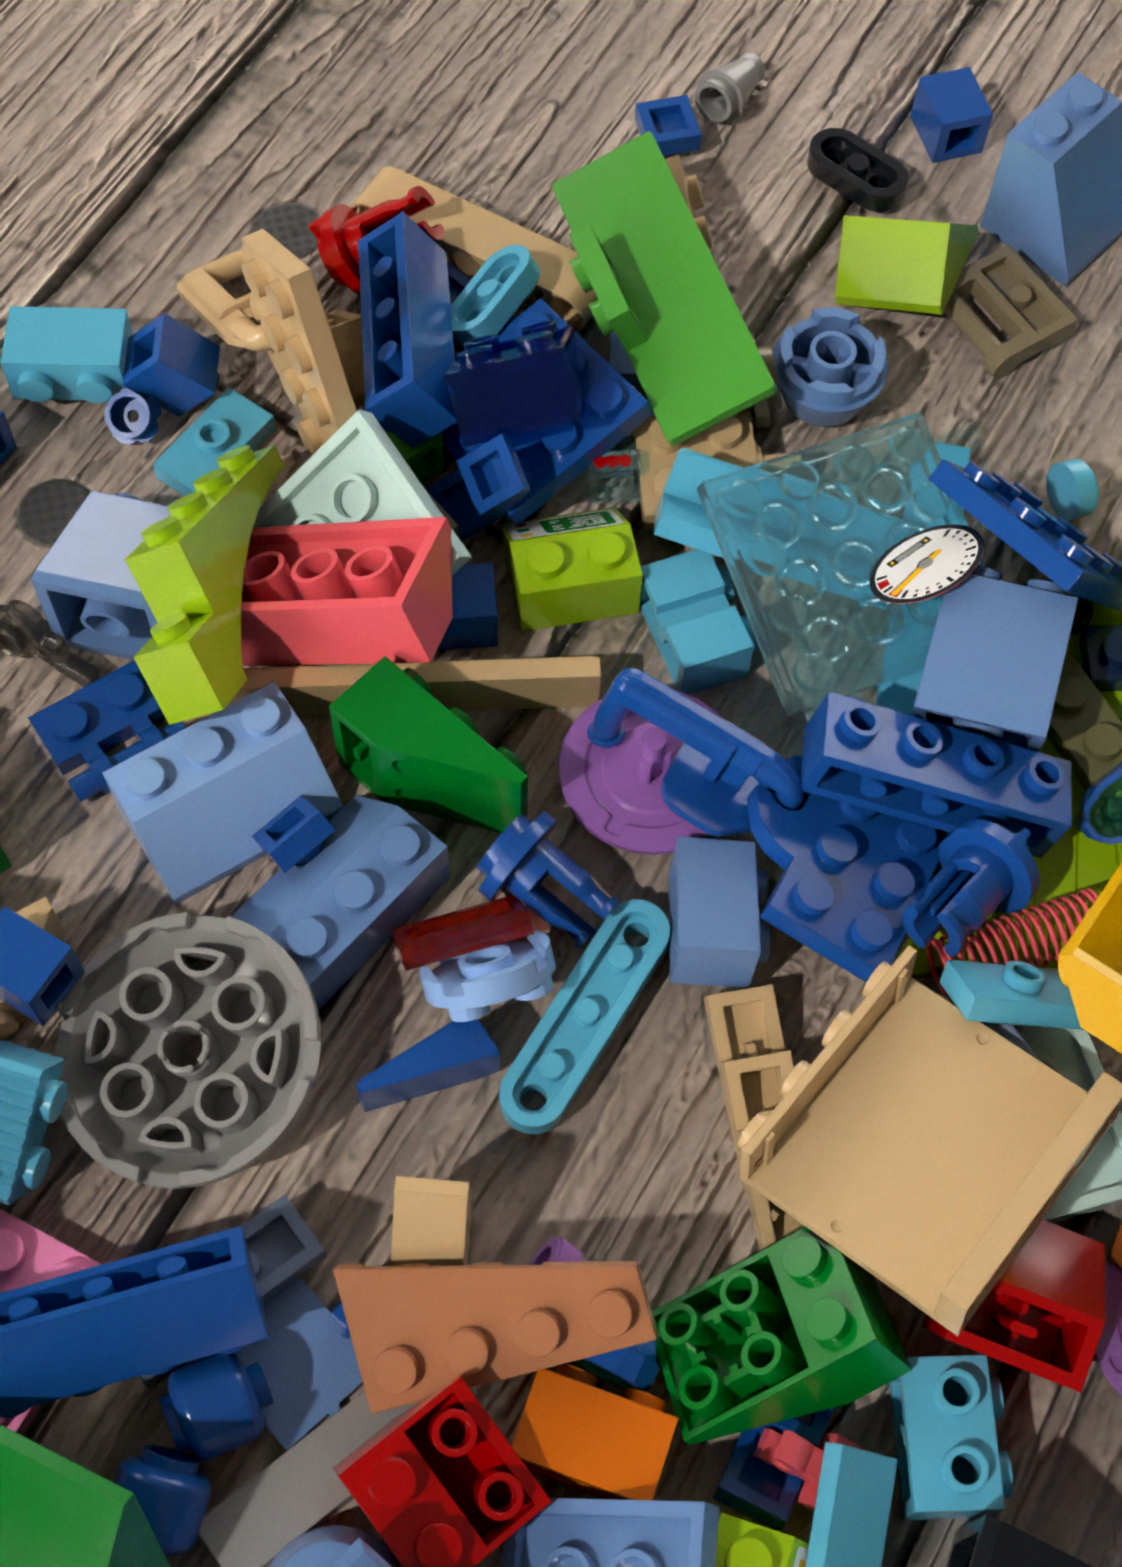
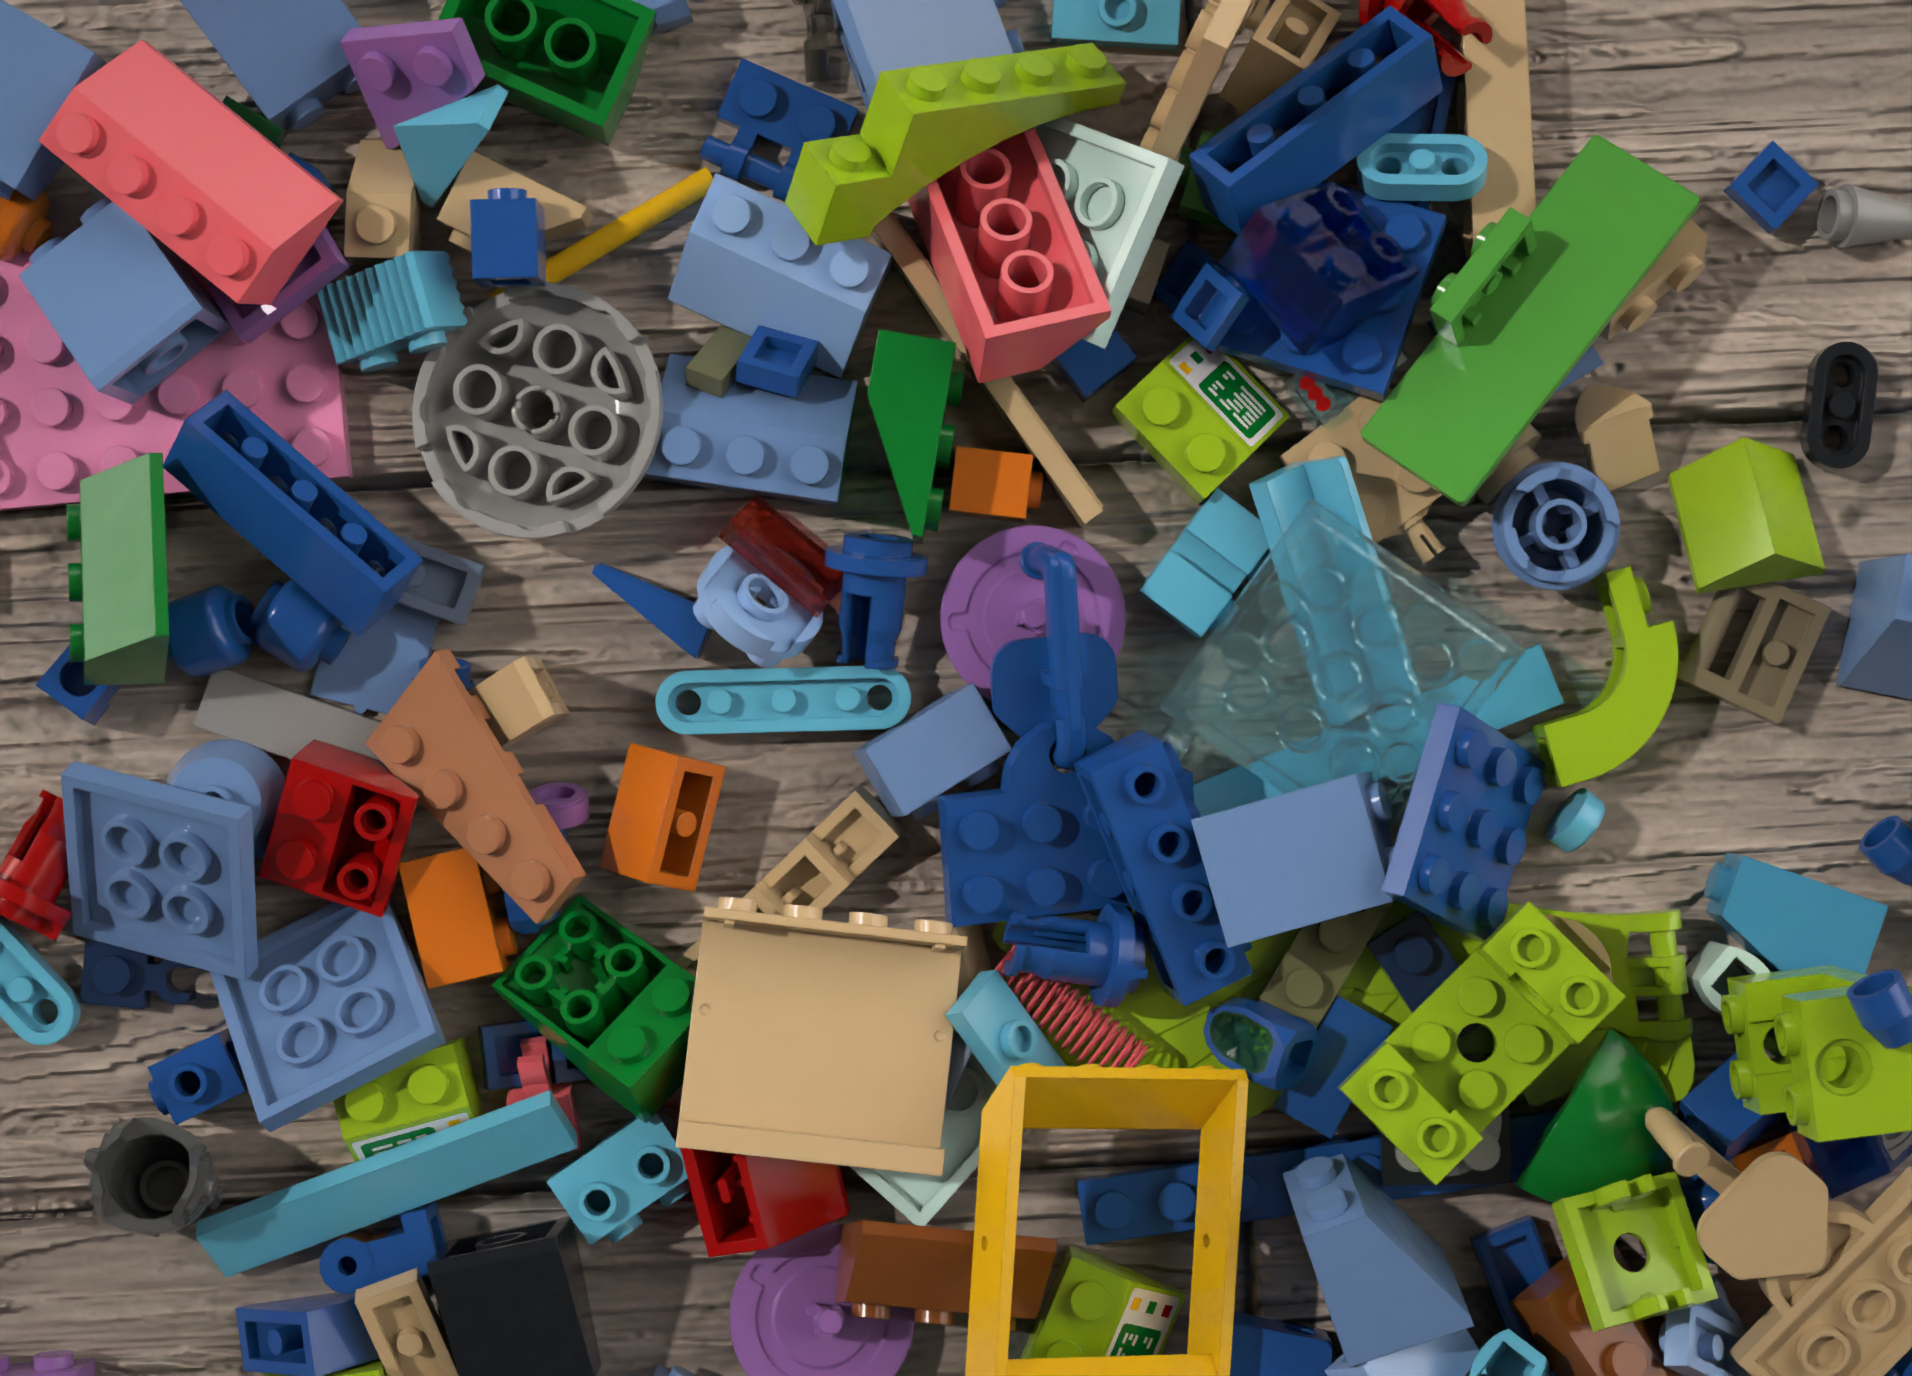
camera: 60 degrees right, 25 degrees up
(90, 883) = (626, 227): none -> yellow bar
(258, 883) = (716, 363): none -> olive piece
(526, 725) = (994, 484): none -> orange brick
(623, 1177) = (662, 817): none -> orange brick
(779, 299) = (1616, 434): none -> tan tile
(926, 564) = (1356, 747): white sticker -> none
(984, 390) = (1632, 697): none -> lime arch

